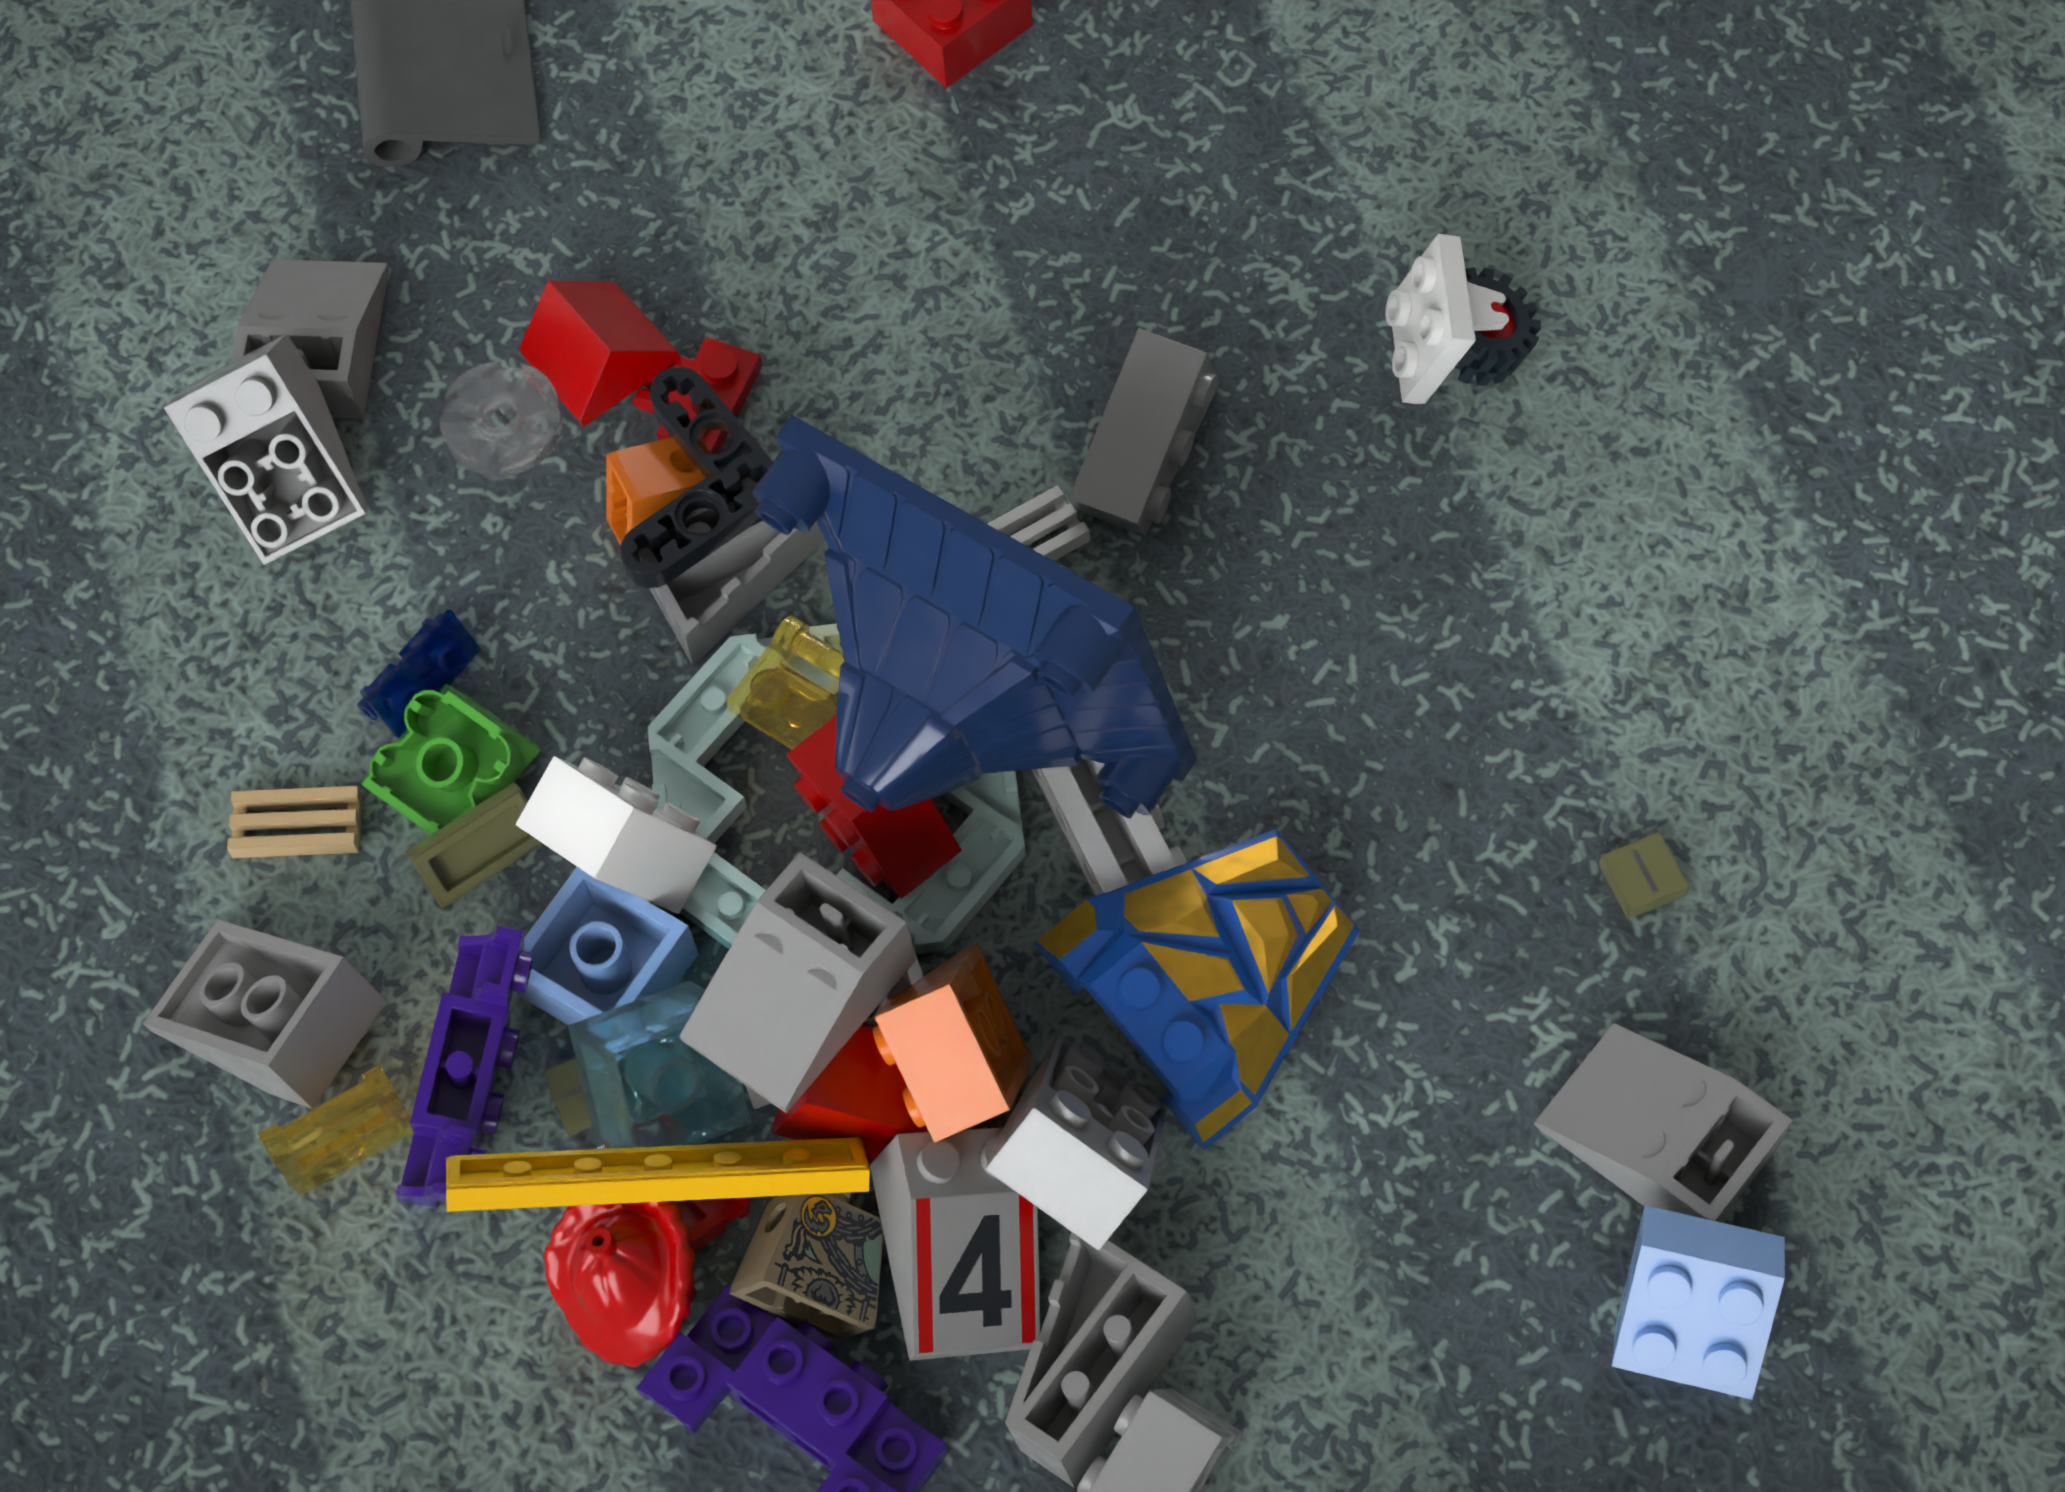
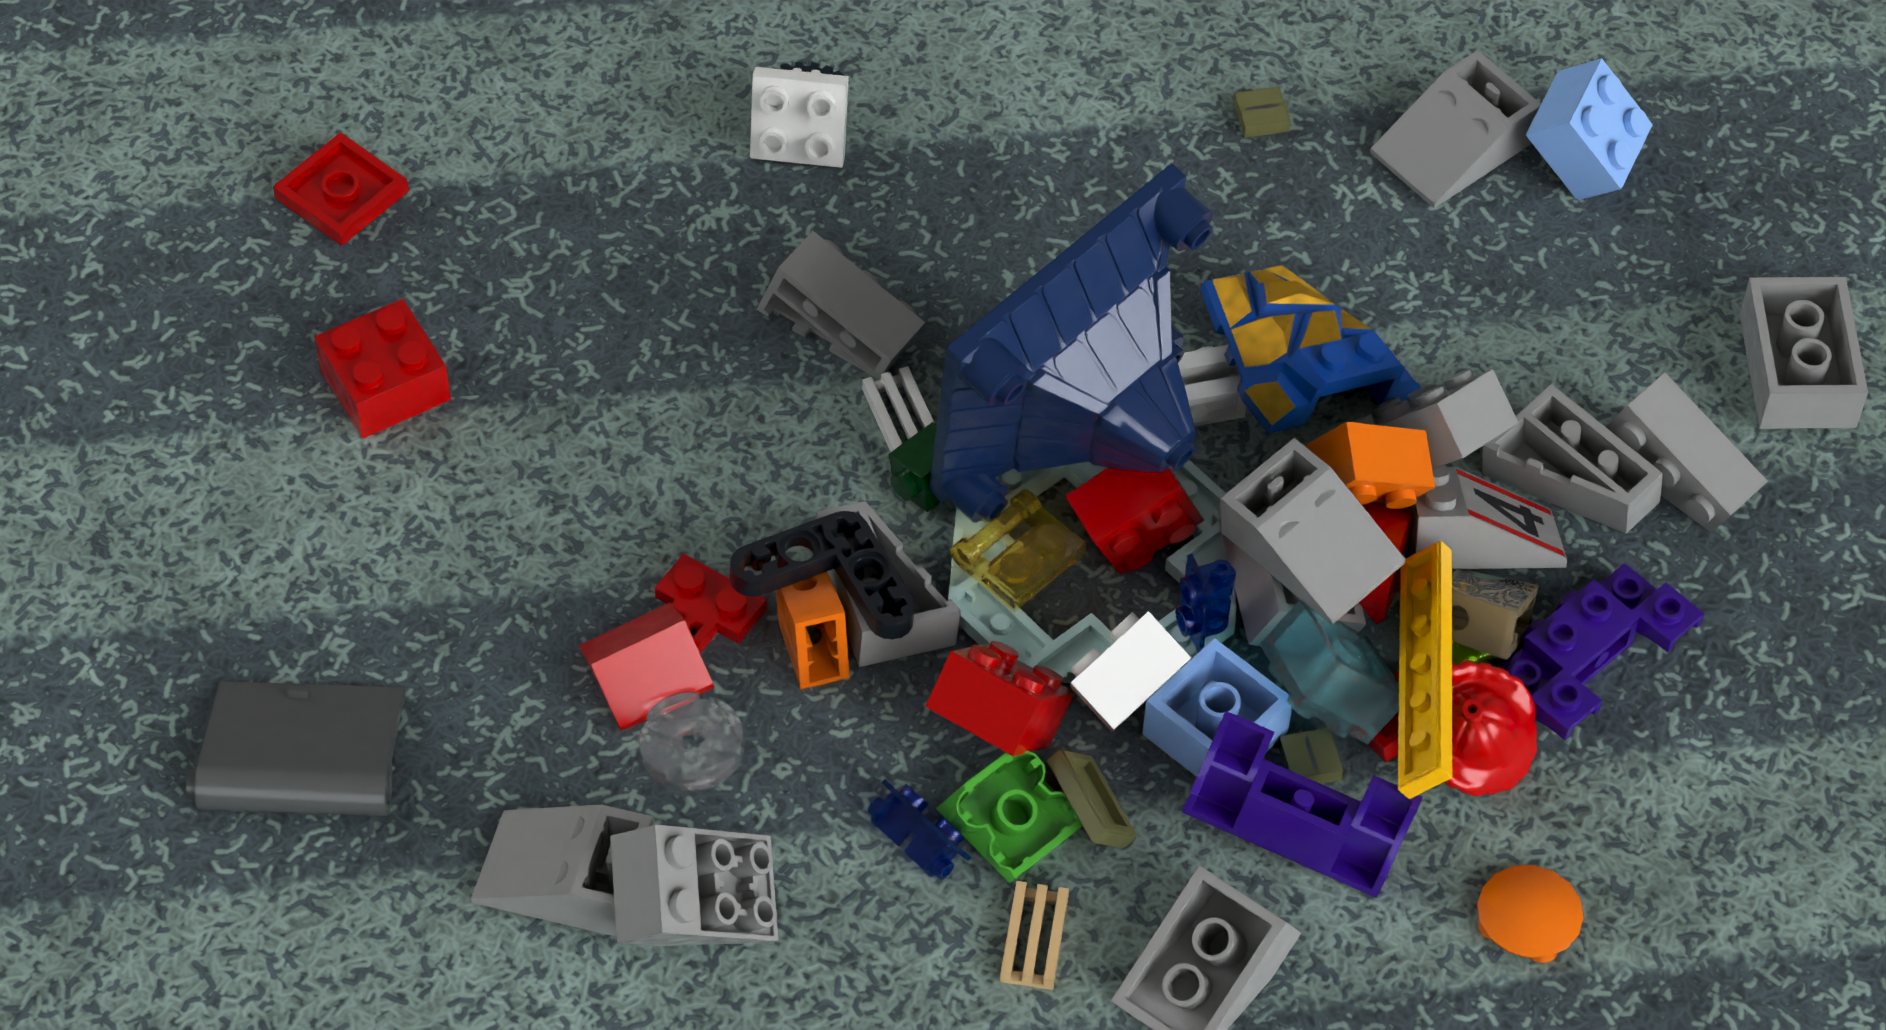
camera: 85 degrees left, 10 degrees down
(339, 1133) = (1320, 891): clear yellow plate -> none
(391, 1387) = (1530, 912): none -> orange dish
(571, 699) = (1001, 697): none -> red brick
(725, 892) = (1205, 599): none -> clear blue hinge

